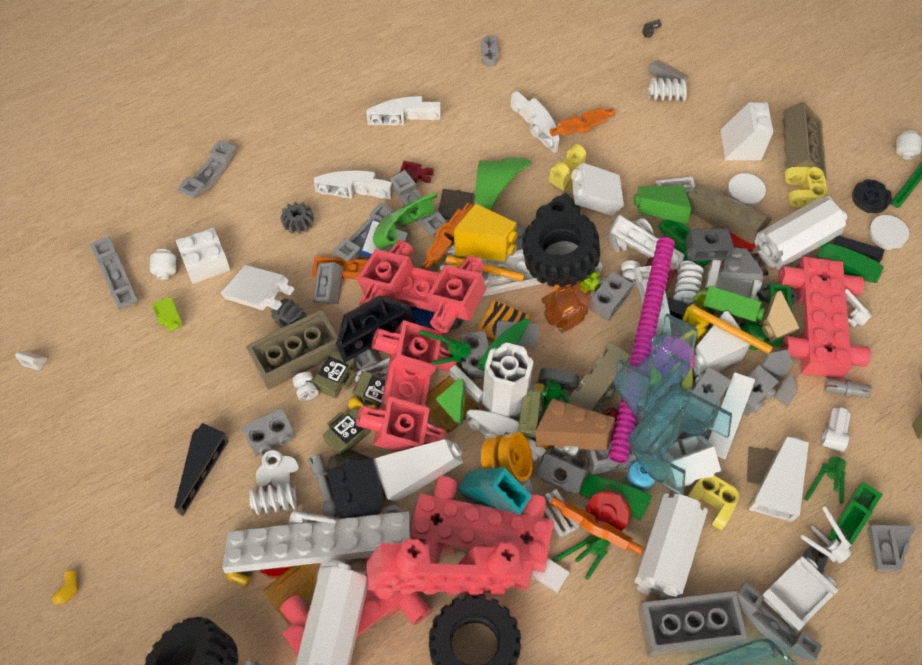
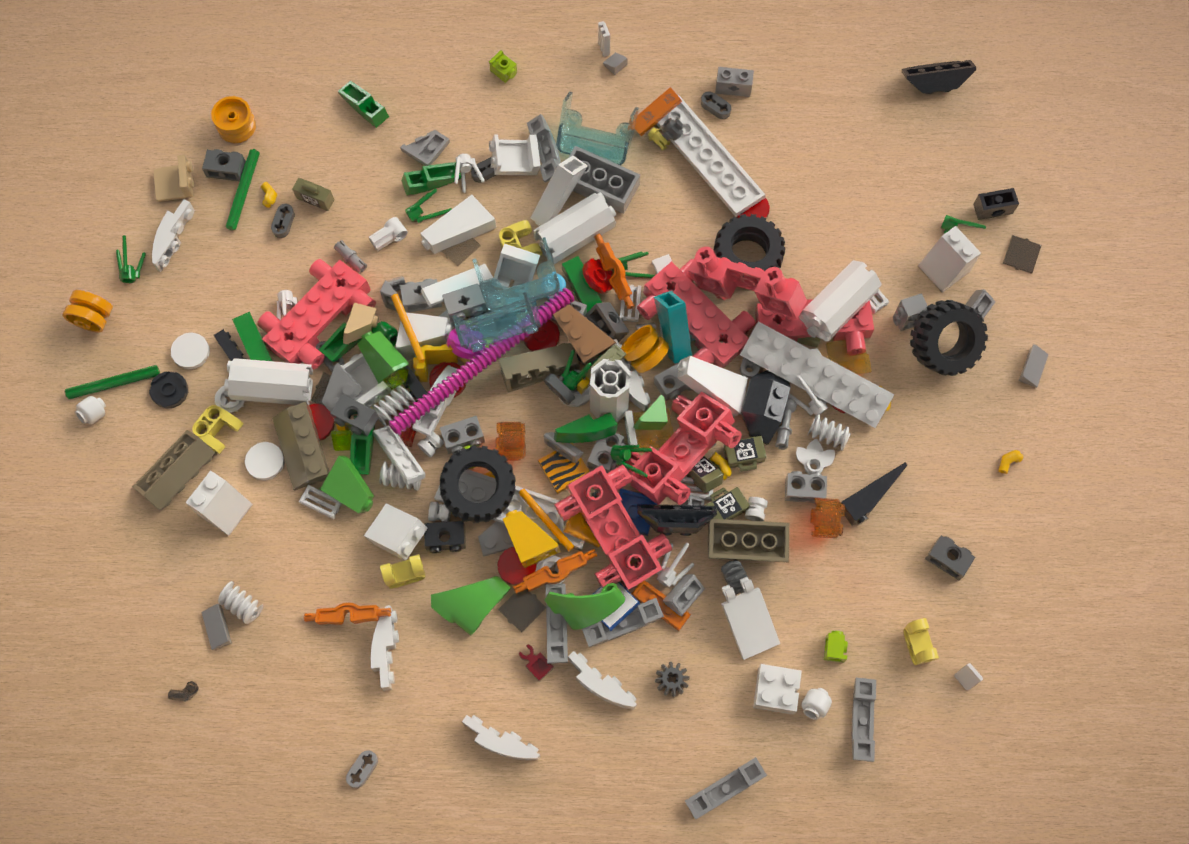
camera: 145 degrees left, 10 degrees up
(81, 443) = (938, 556): none -> dark grey brick
(86, 354) = (919, 642): none -> light yellow piece
(230, 409) = (827, 518): none -> clear orange brick
(350, 291) = (667, 575): none -> white plant
(468, 457) = (670, 376): none -> light grey brick
(720, 571) = (558, 190): none -> white slope

